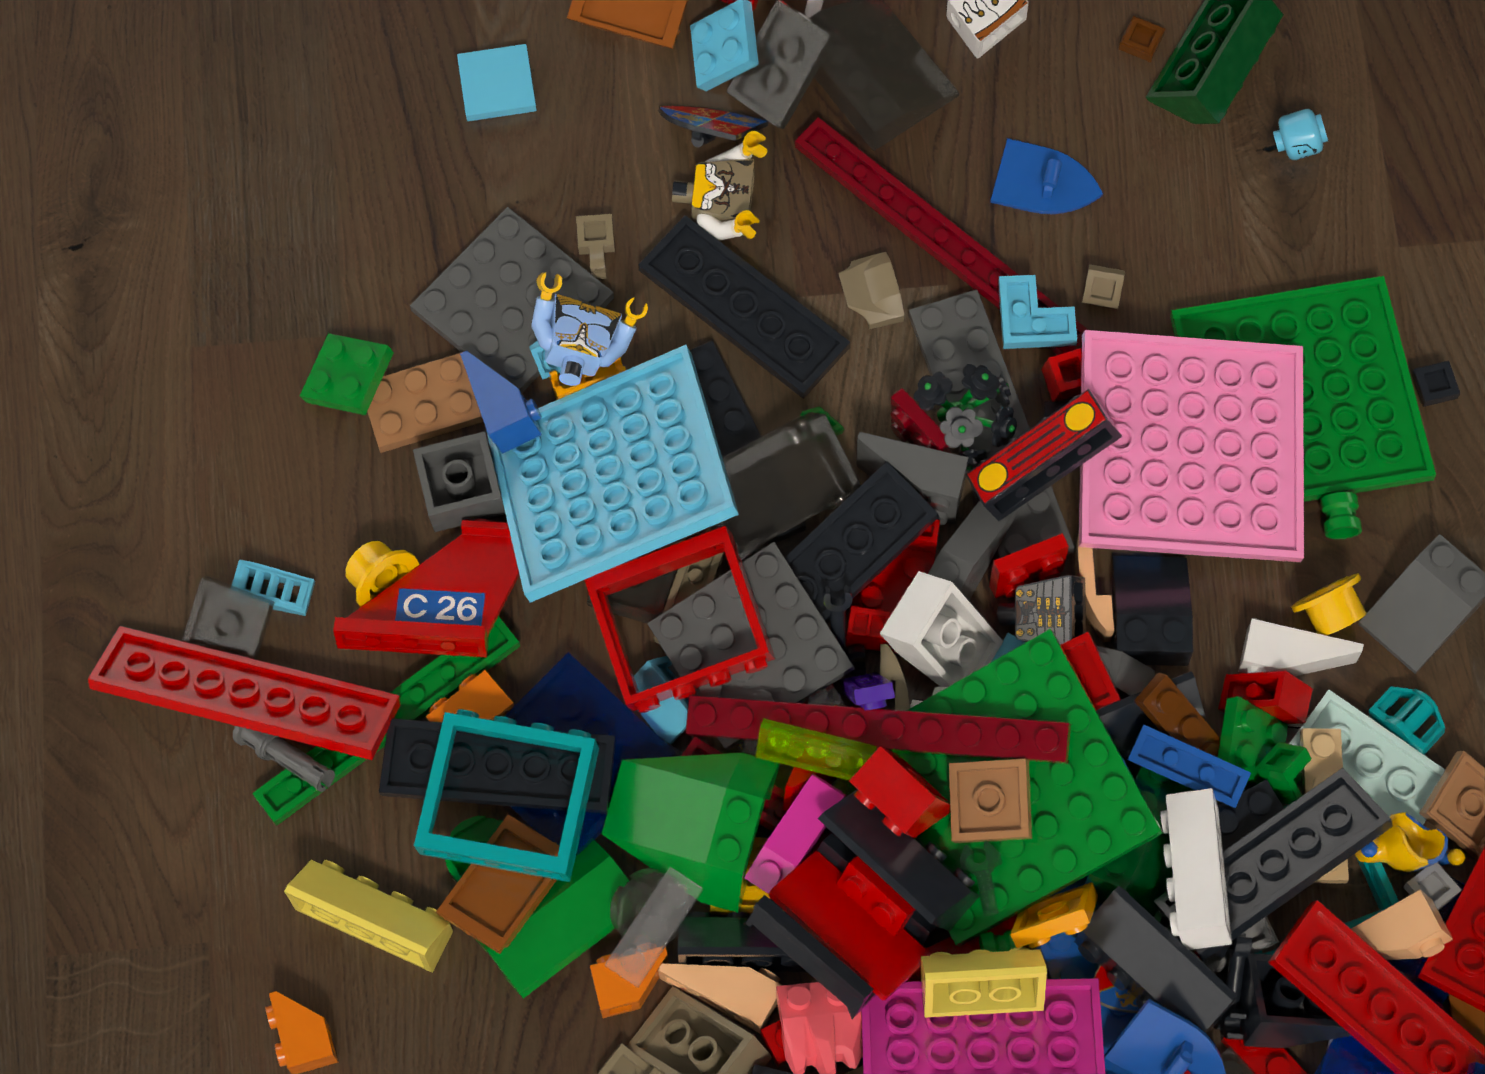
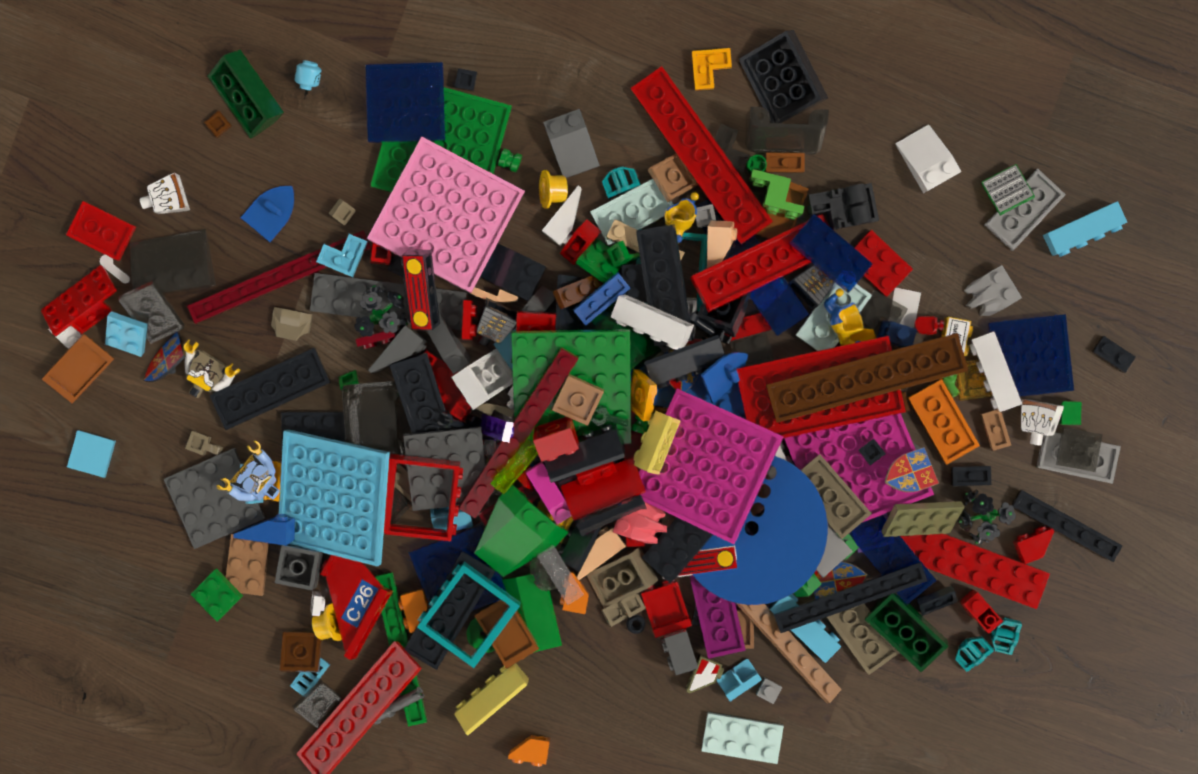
camera: 70 degrees left, 20 degrees up
(306, 552) = (300, 652): none -> reddish brown plate
(408, 536) = (317, 603): none -> white plate
(1344, 299) = (405, 102): none -> clear blue plate

